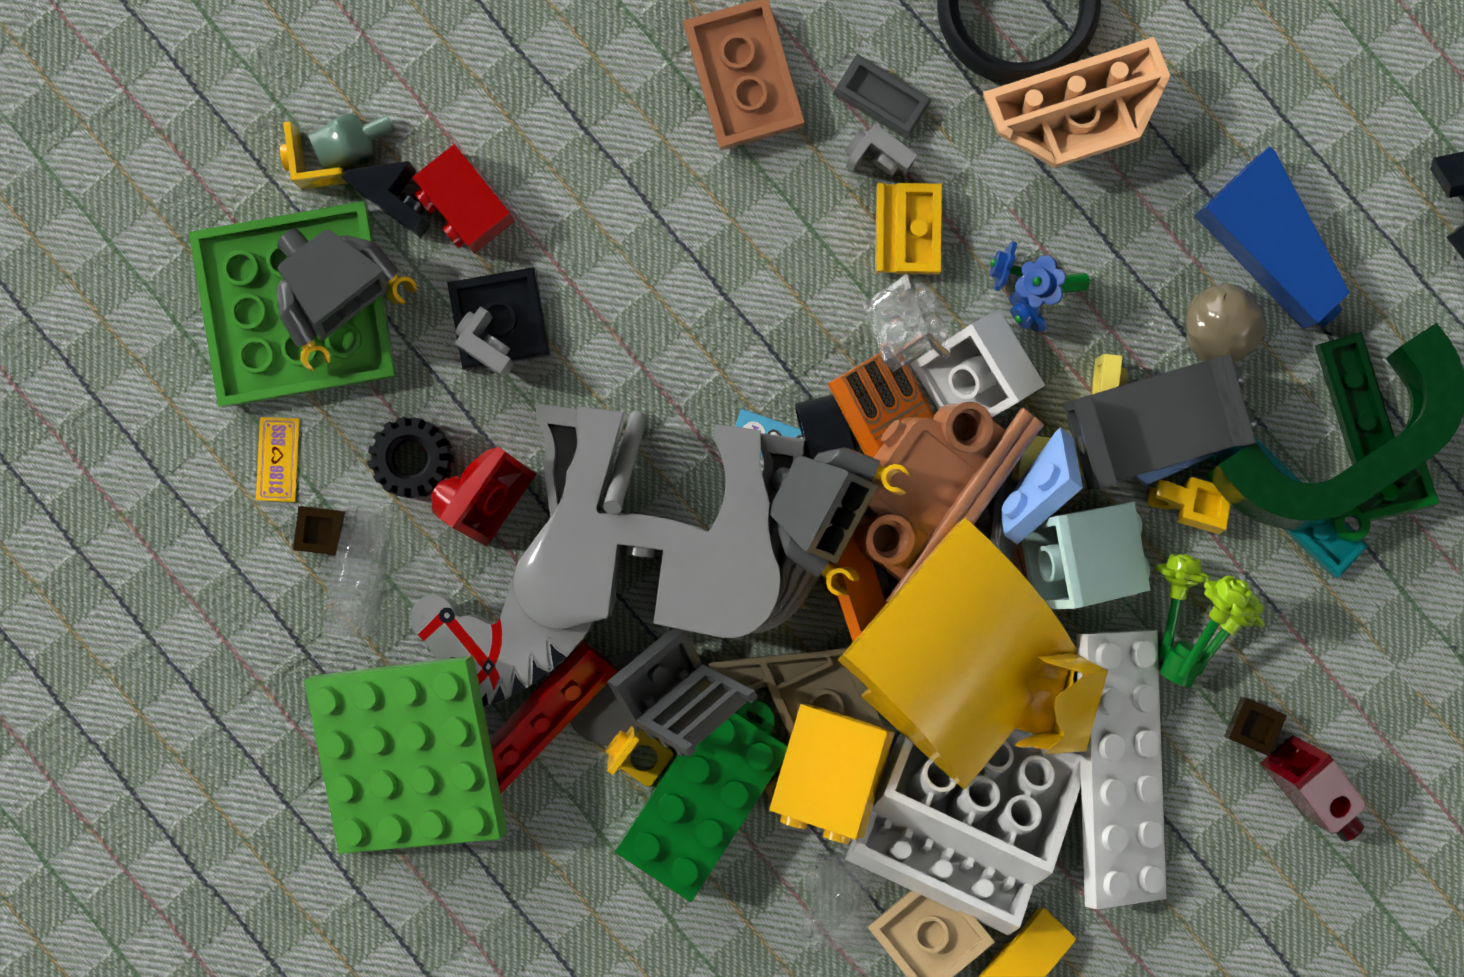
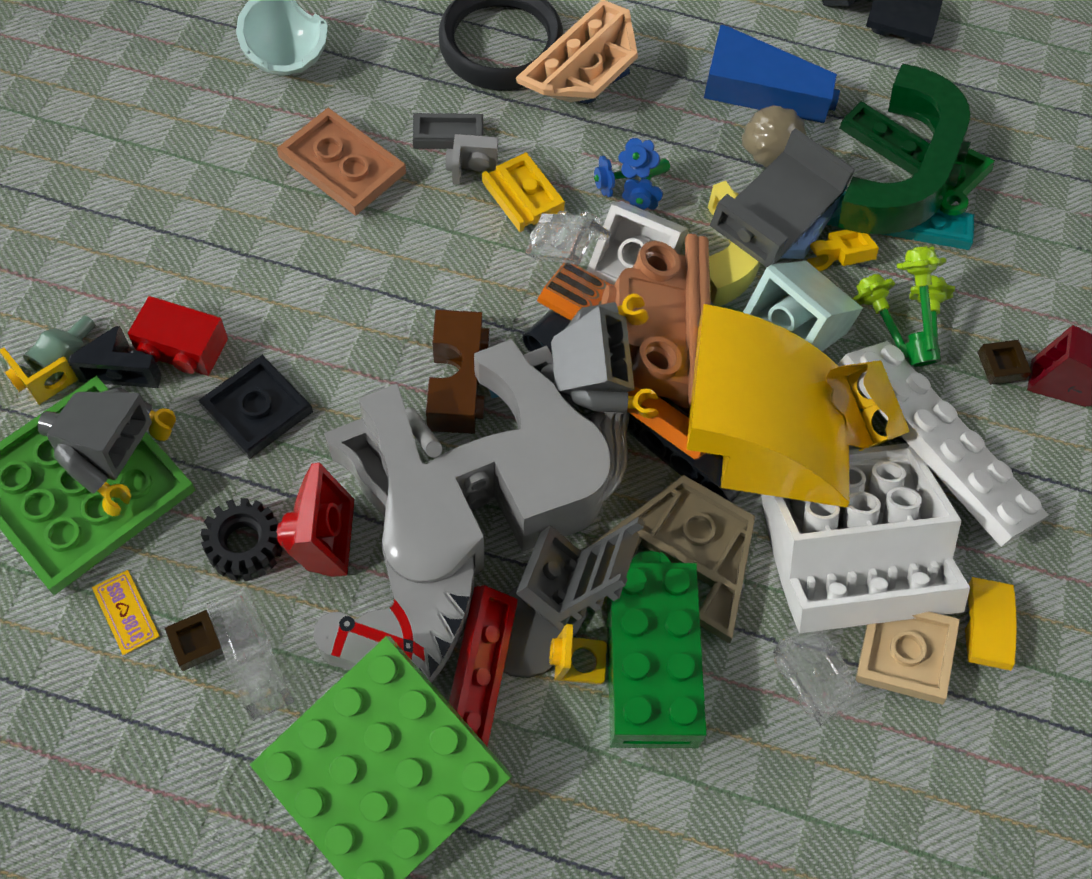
camera: 30 degrees left, 25 degrees down
(487, 351) = (255, 421): light grey bracket -> none
(733, 373) = (454, 400): none -> reddish brown arch
(831, 773) = (741, 558): yellow brick -> none
(1043, 488) = (740, 271): light blue wing -> none

